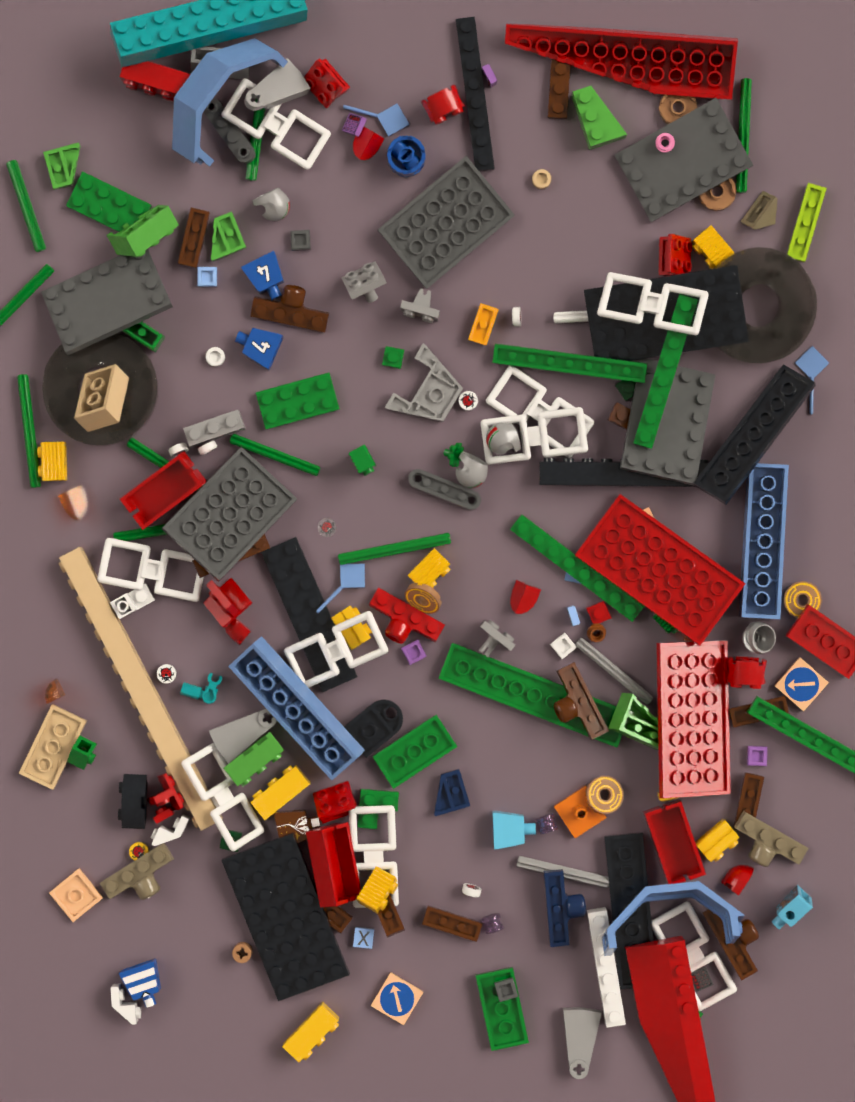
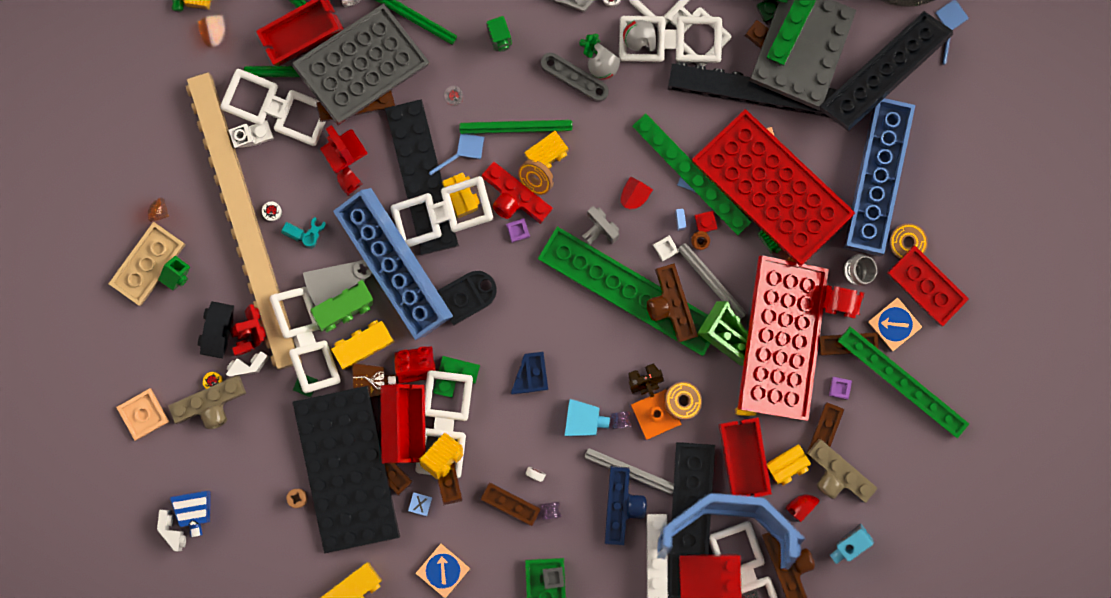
camera: 10 degrees right, 5 degrees down
(414, 751) = (502, 327): green plate -> none
(571, 777) = (646, 383): none -> dark brown hips

